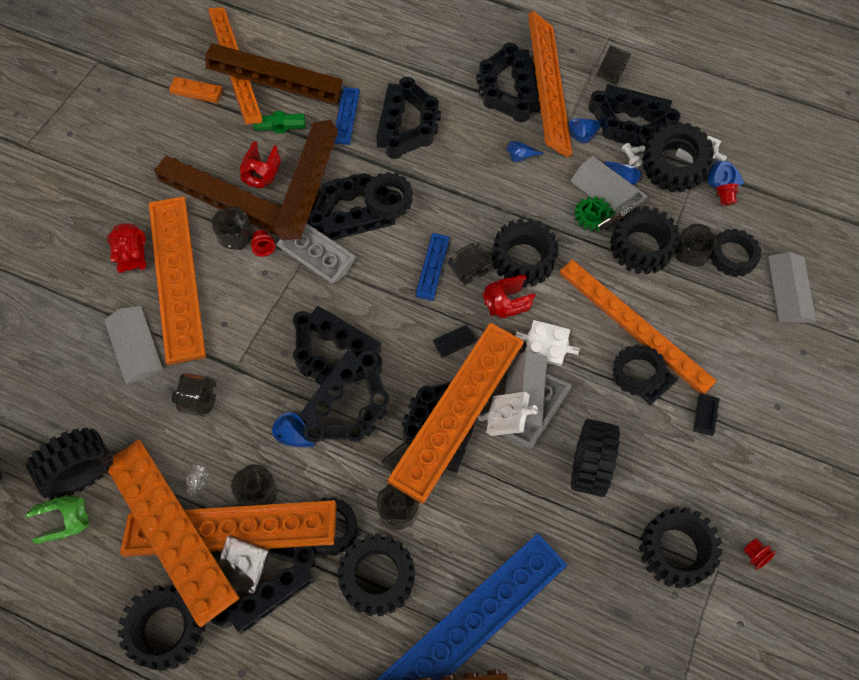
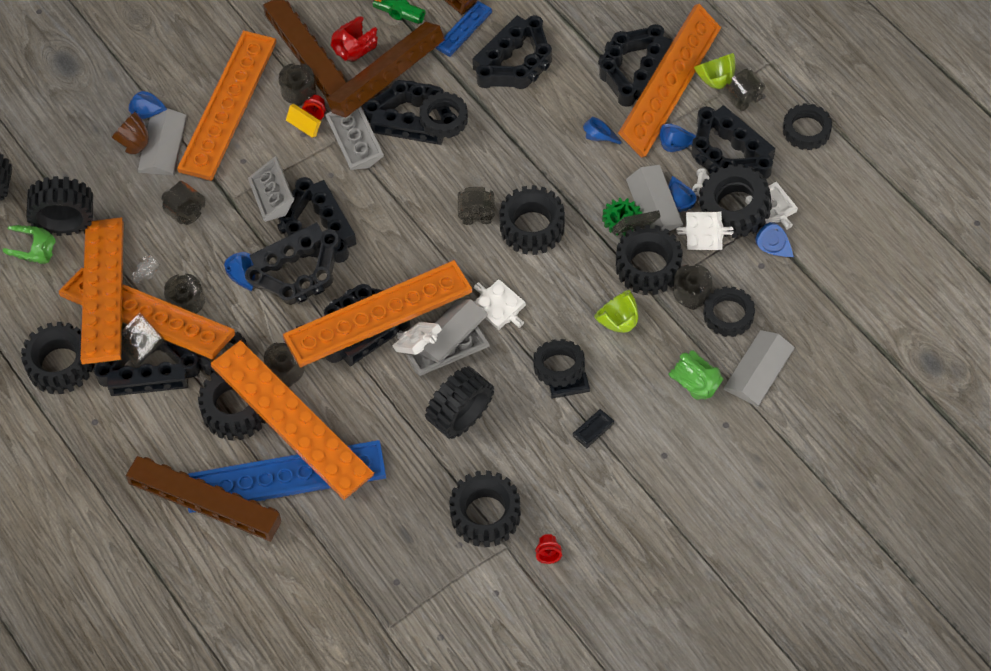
camera: 35 degrees right, 5 degrees down
(95, 316) = (146, 105): none -> blue piece
(101, 351) = (132, 134): none -> reddish brown hair
(127, 247) = (203, 60): red piece -> none
(259, 259) = (303, 120): none -> yellow tile
(275, 339) = (271, 190): none -> light grey slope
(432, 267) = (446, 195): blue tile -> none
(449, 562) = (292, 420): none -> orange plate
(454, 341) = (419, 263): black tile -> none
(496, 297) = (490, 240): red piece -> none
(581, 59) = (717, 71): none -> lime hair
(637, 327) = (589, 330): orange plate -> none
(655, 297) = (619, 314): none -> lime hair
(674, 192) = (704, 230): none -> white plate
(682, 63) = (812, 112): none -> black tyre
(727, 194) = (762, 258): red piece -> none
(761, 321) = (696, 375): none -> bright green piece

